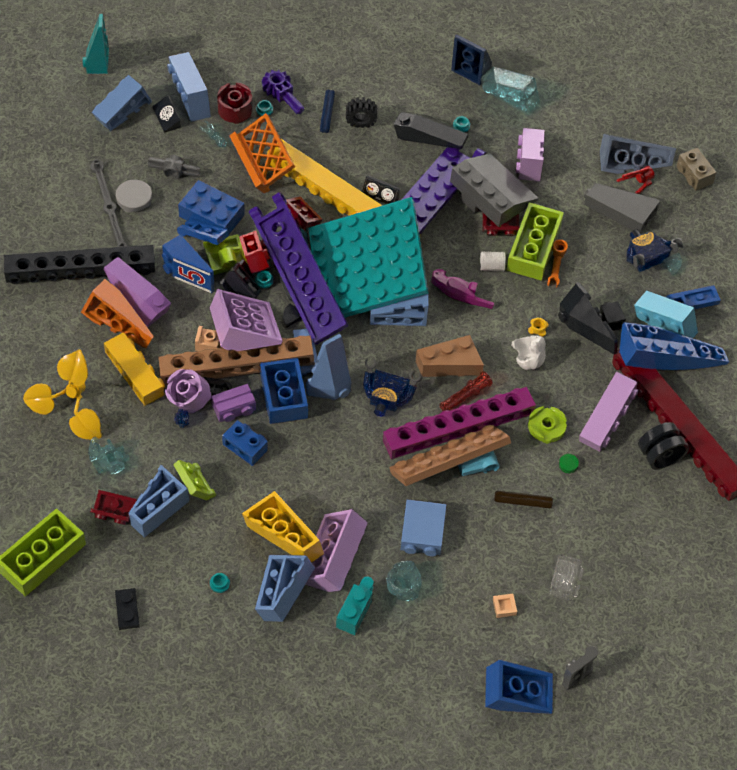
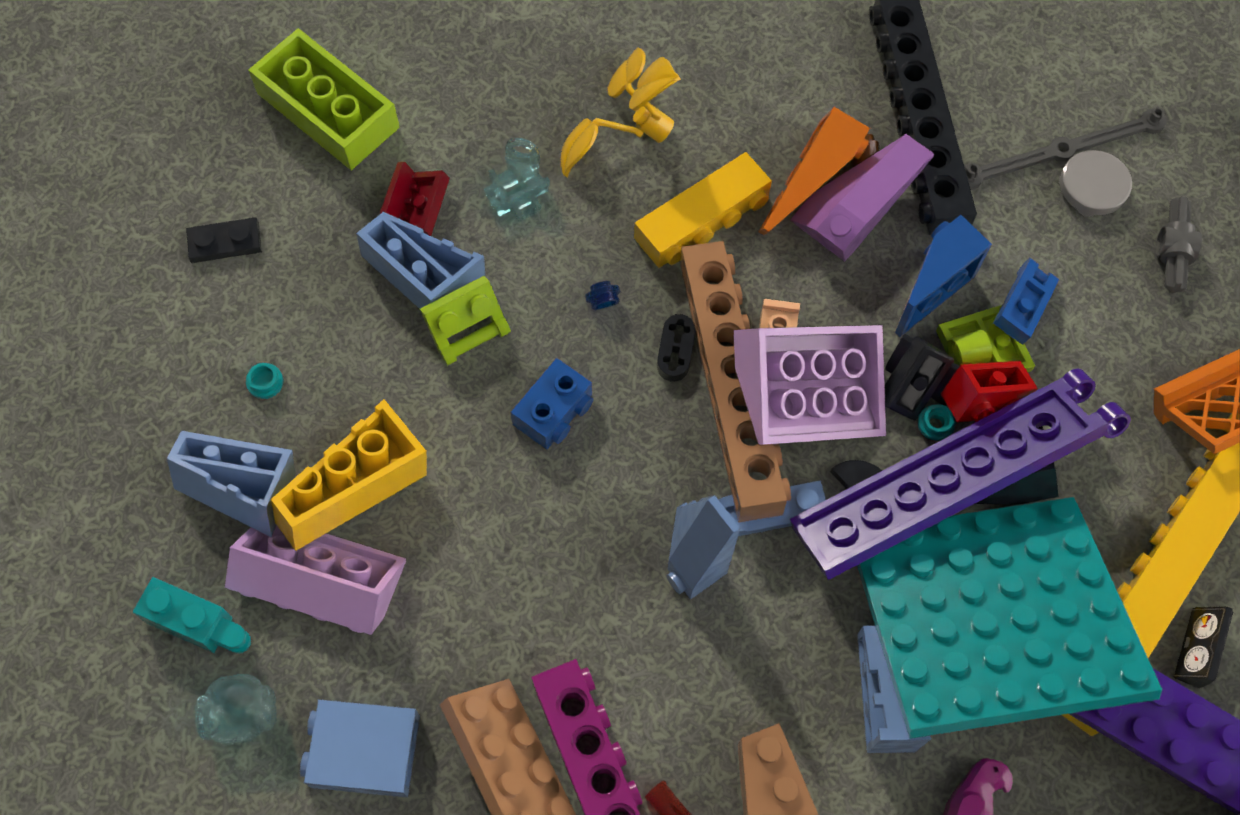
camera: 90 degrees right, 10 degrees up
(188, 390) = (652, 294): lavender brick -> none
(211, 207) = (1085, 313): blue brick -> none
(233, 403) = (639, 379): medium lavender brick -> none
(284, 390) = (667, 464): blue brick -> none
(303, 213) = (1109, 481): dark red bracket -> none
(388, 390) = (687, 668): clear blue torso -> none

